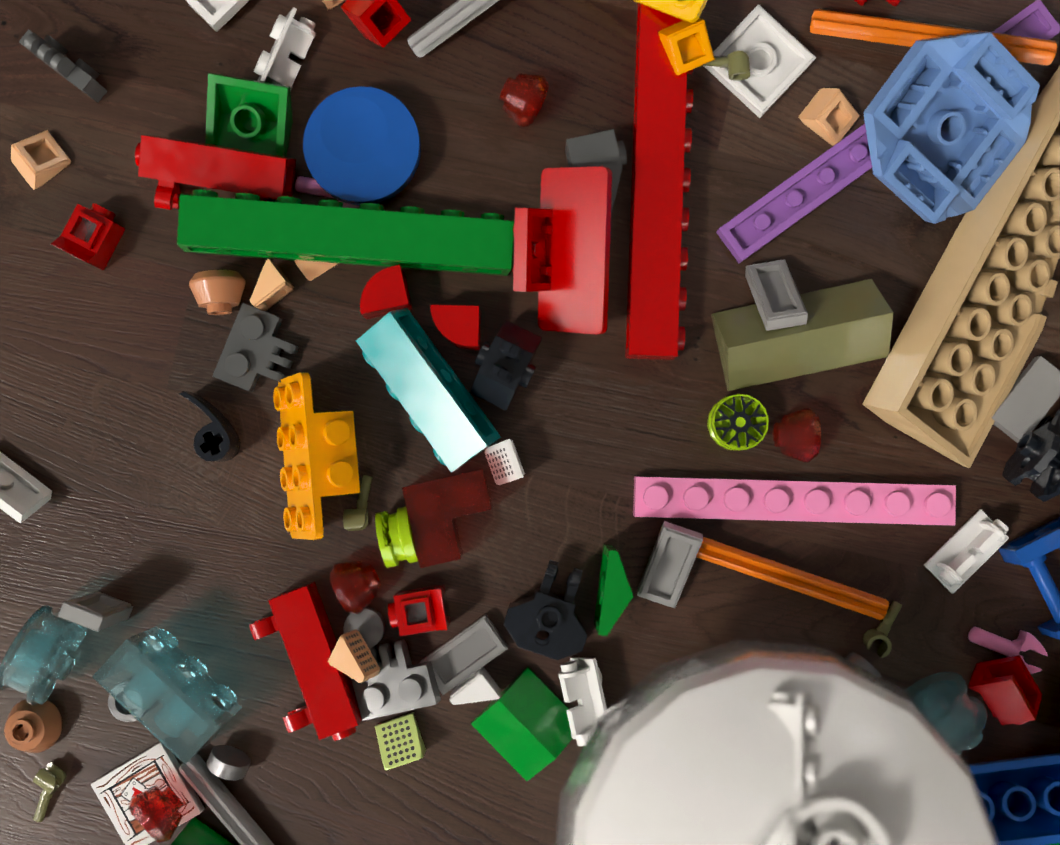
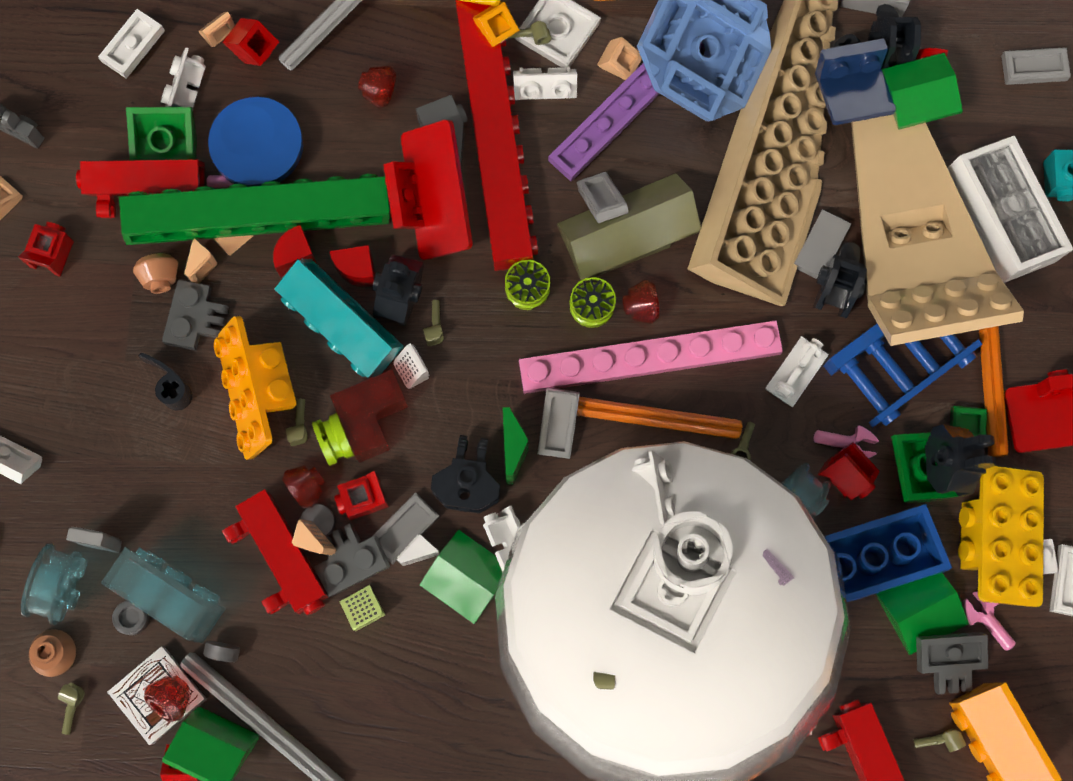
camera: 10 degrees left, 10 degrees down
(540, 425) = (434, 333): none -> olive hand
(663, 386) = (527, 284): none -> lime wheel
(746, 134) = (555, 84): none -> white hinge

